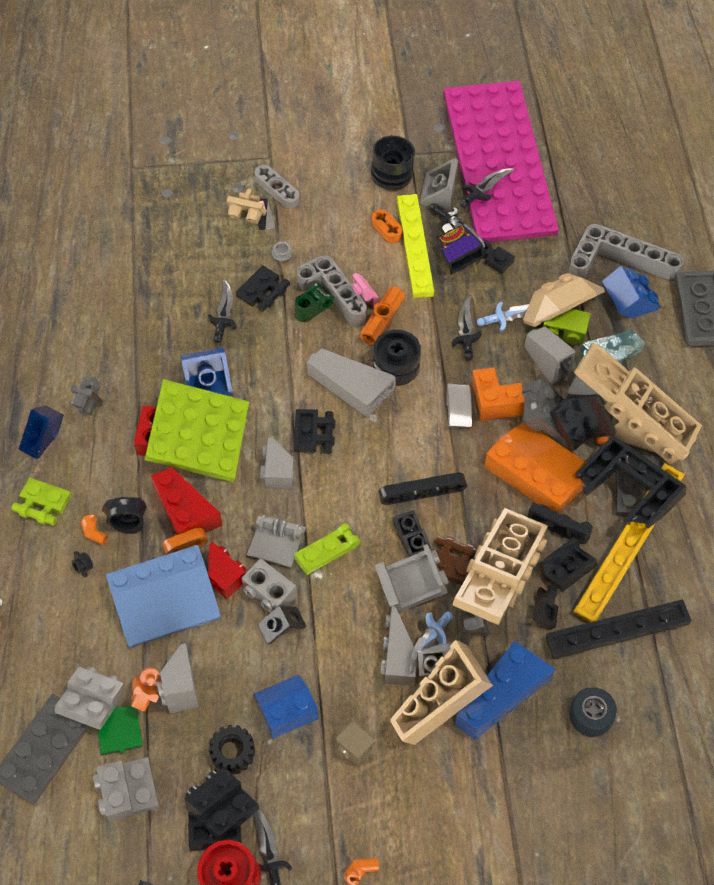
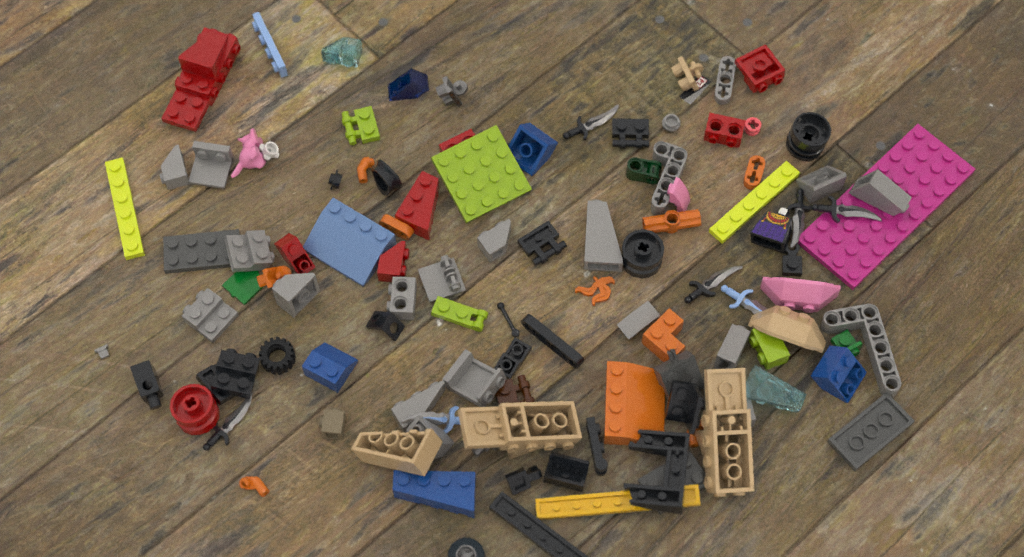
camera: 55 degrees right, 5 degrees up
(130, 655) = (294, 254): none -> red slope
(293, 153) = (760, 69): none -> red plate
(327, 218) = (725, 126): none -> red brick
(341, 202) = (757, 124): none -> coral bush
(385, 515) = (515, 333): none -> black hinge
(401, 414) = (601, 284): none -> orange piece
(492, 149) = (881, 193): none -> light grey slope
(532, 272) = (799, 293): none -> bright pink wedge
(602, 270) = (845, 339): none -> green bracket

